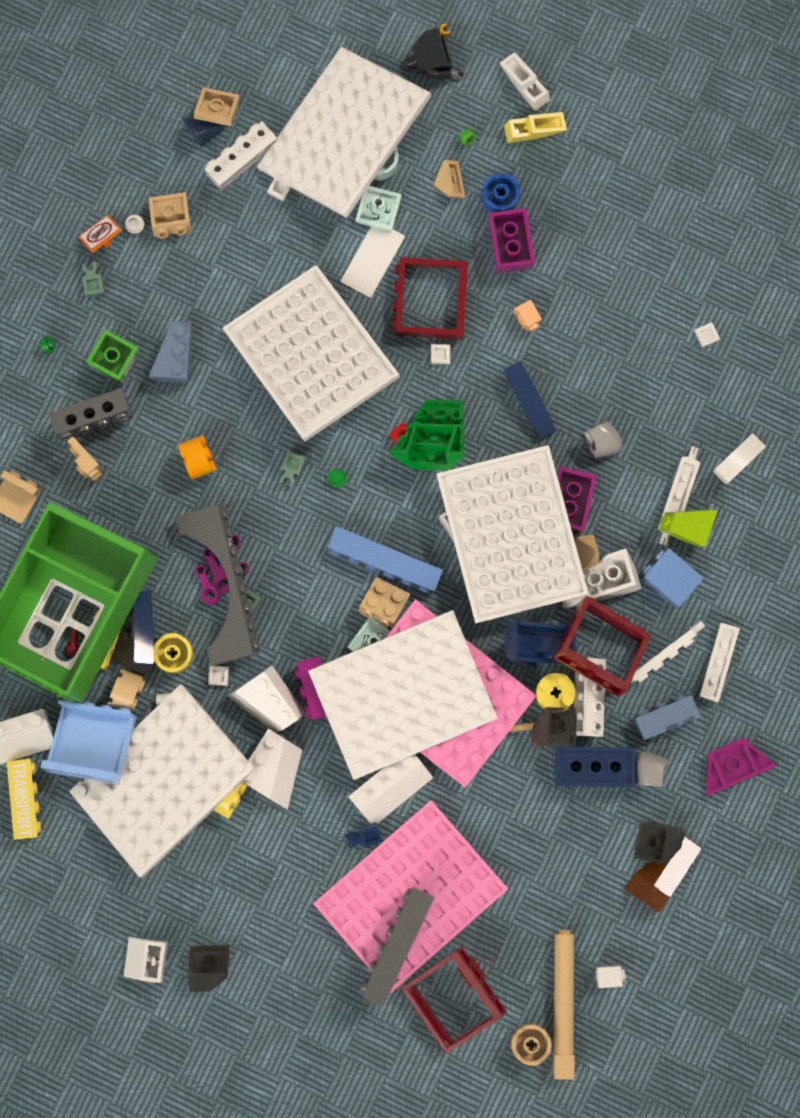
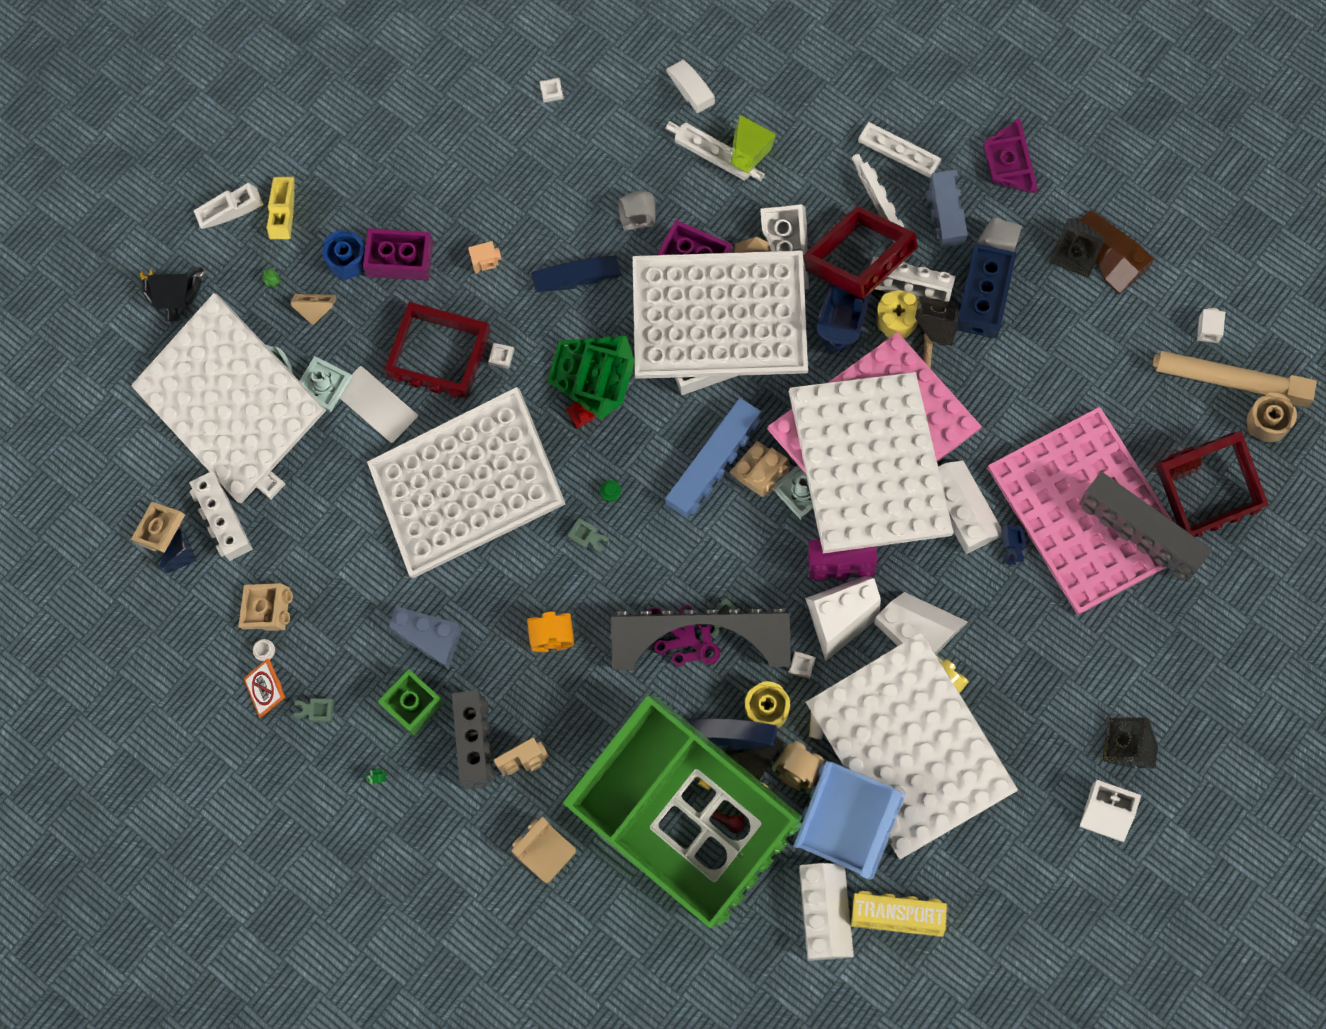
camera: 70 degrees left, 10 degrees down
(672, 577) = (800, 175): medium blue brick -> none

